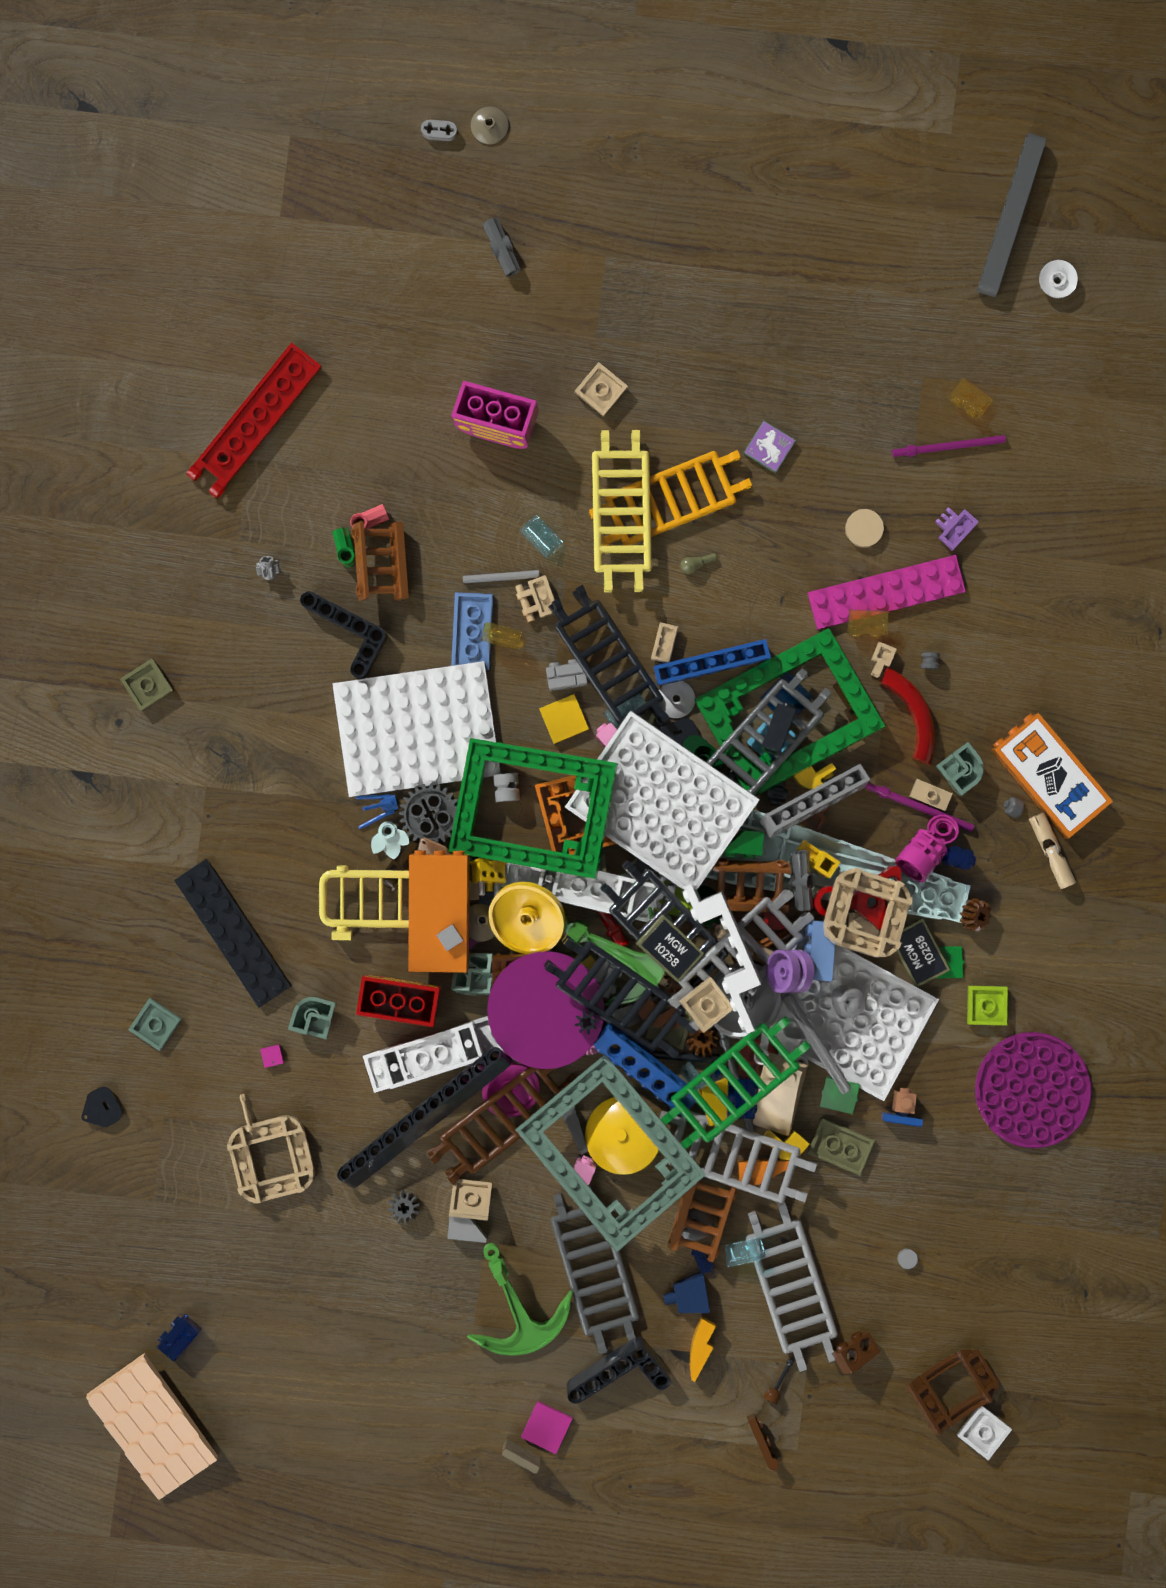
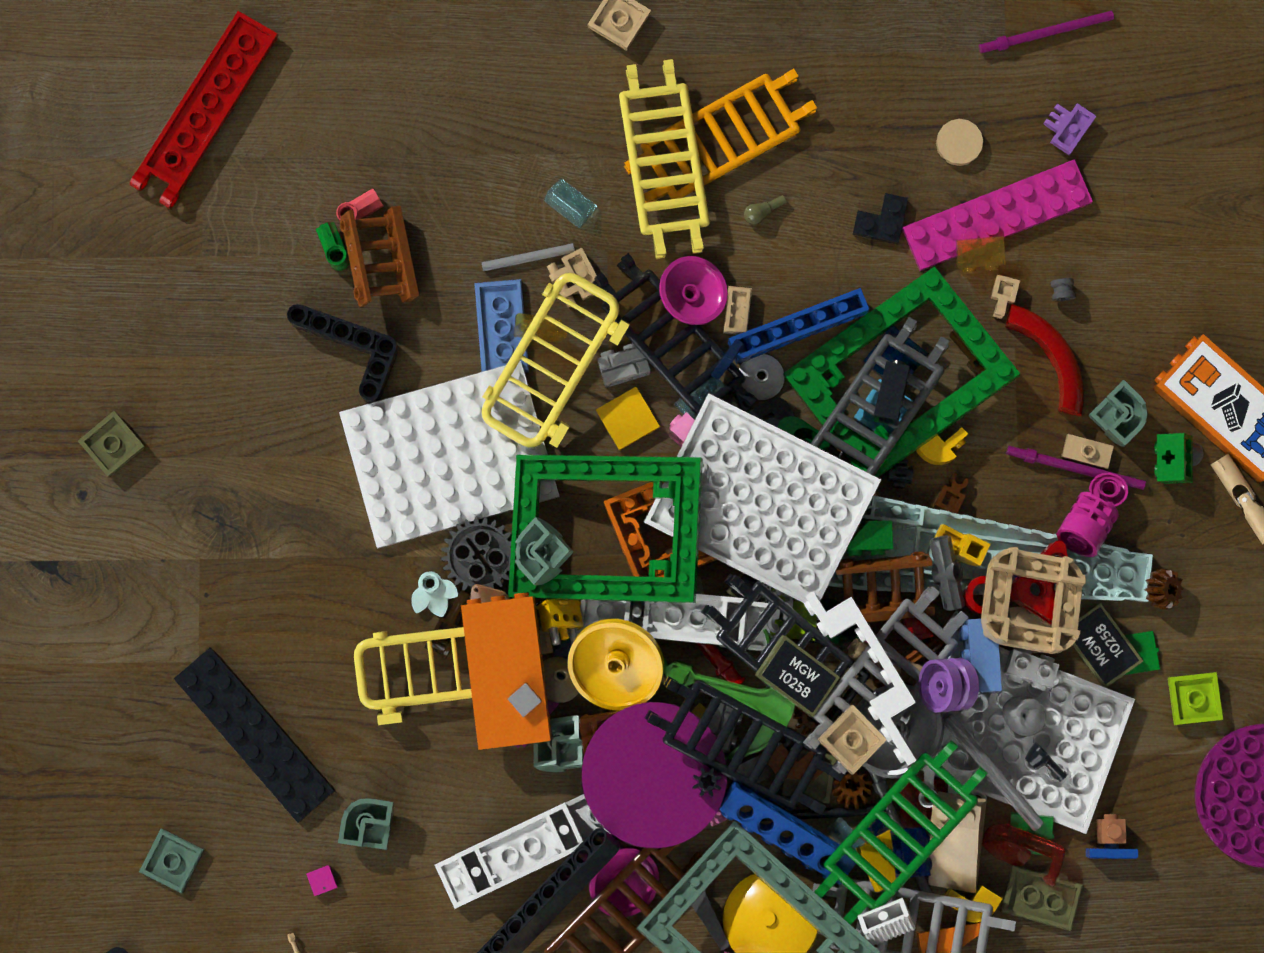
camera: 10 degrees left, 5 degrees down
(267, 567) = (242, 282): light grey gear -> none
(388, 803) = (425, 549): blue plant -> none
(398, 1000) = (470, 787): red brick -> none
(478, 820) = (541, 552): none -> sand green brick
(495, 415) = (496, 64): dark pink brick -> none
(506, 787) = (569, 510): light grey wheel -> none
(557, 644) = (608, 326): none -> light yellow bar
(640, 618) = (702, 282): none -> dark pink dish
(649, 683) = (727, 359): none -> dark blue tile
(714, 1151) = (886, 922): none -> white brick
(769, 447) = (831, 60): tile -> none
(794, 589) = (885, 226): none -> black plate
(814, 801) = (948, 475): light grey brick -> none
(822, 1108) = (1014, 849): none -> clear red piece
(855, 1036) = (1038, 757): none -> black bar
(865, 968) = (1039, 671): none -> white brick
(959, 858) = (1133, 522): clear blue brick -> none
(999, 820) = (1179, 469): none -> green brick

